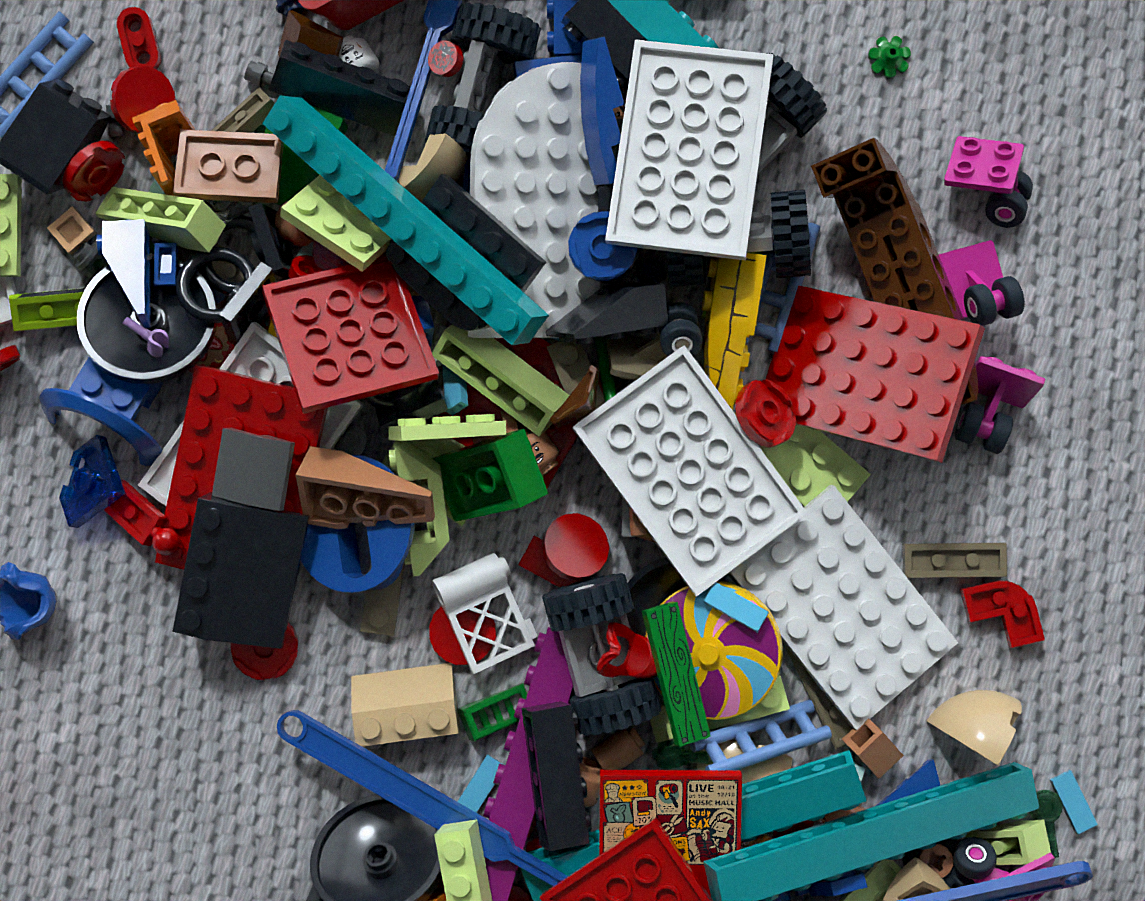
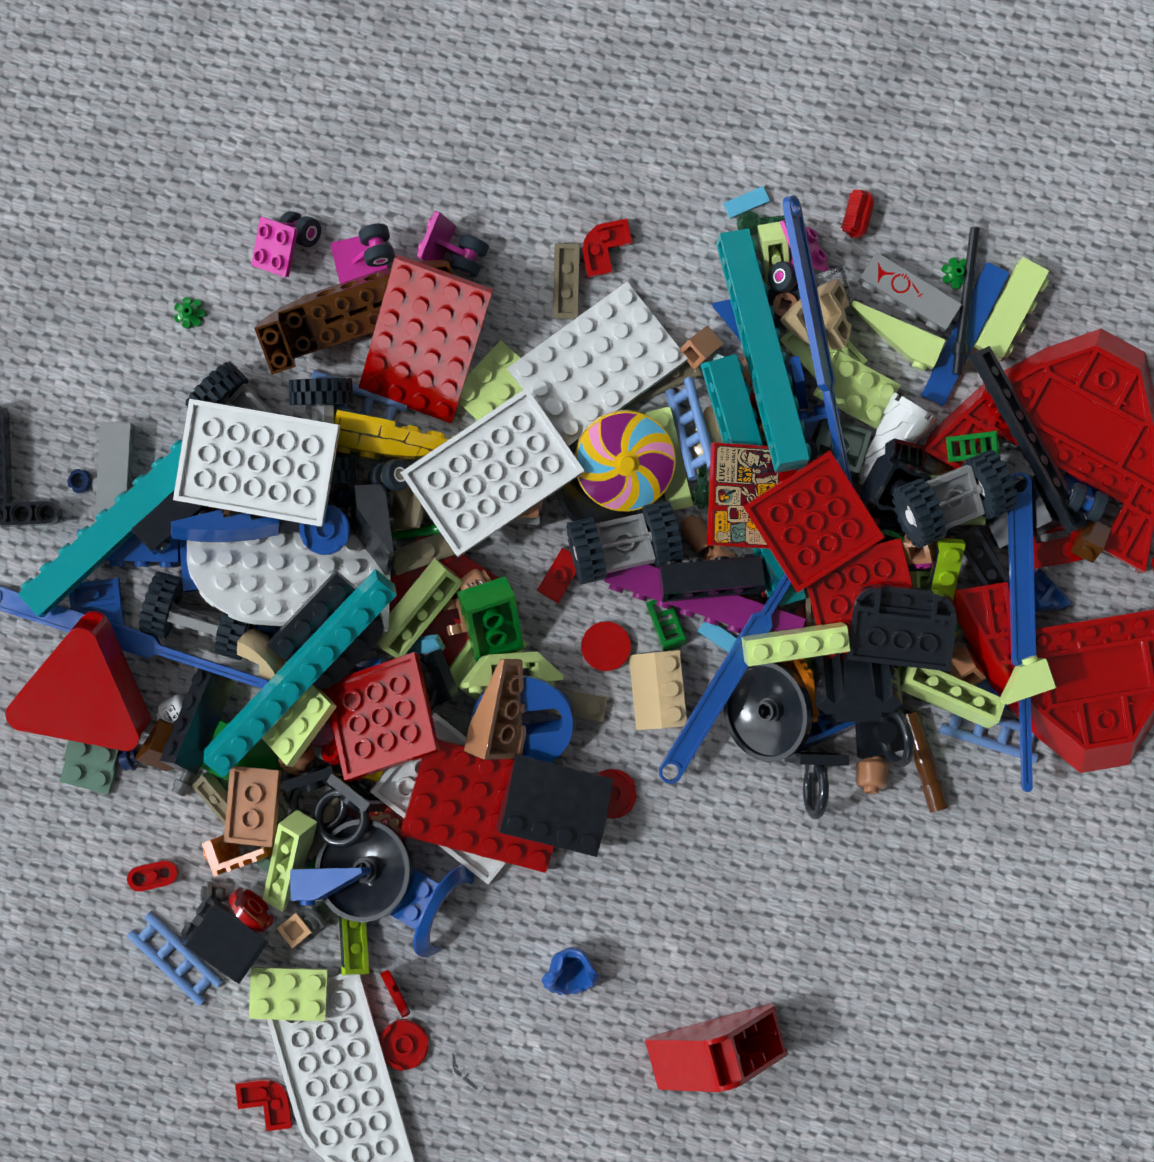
camera: 90 degrees left, 0 degrees up
(93, 485) = (487, 919): clear blue plate -> none
(137, 92) = (194, 874): red tile -> none
(143, 521) = (512, 882): red plate -> none
(153, 337) = (380, 862): lavender hand -> none
(165, 264) = (324, 856): blue piece -> none
(253, 469) = (479, 792): dark grey slope -> none
(445, 58) = (179, 641): tile -> none
(446, 427) = (454, 648): yellowish green plate -> none
(472, 586) = (571, 632): white piece -> none
(575, 546) = (546, 559): red tile -> none
(580, 402) = (439, 550): reddish brown slope -> none
(639, 659) = (628, 511): red piece -> none
(676, 673) = (640, 487): green tile -> none
(736, 607) = (593, 442): medium azure piece -> none
(765, 413) = (452, 415): red tile -> none
(979, 721) = (684, 269): tan brick -> none

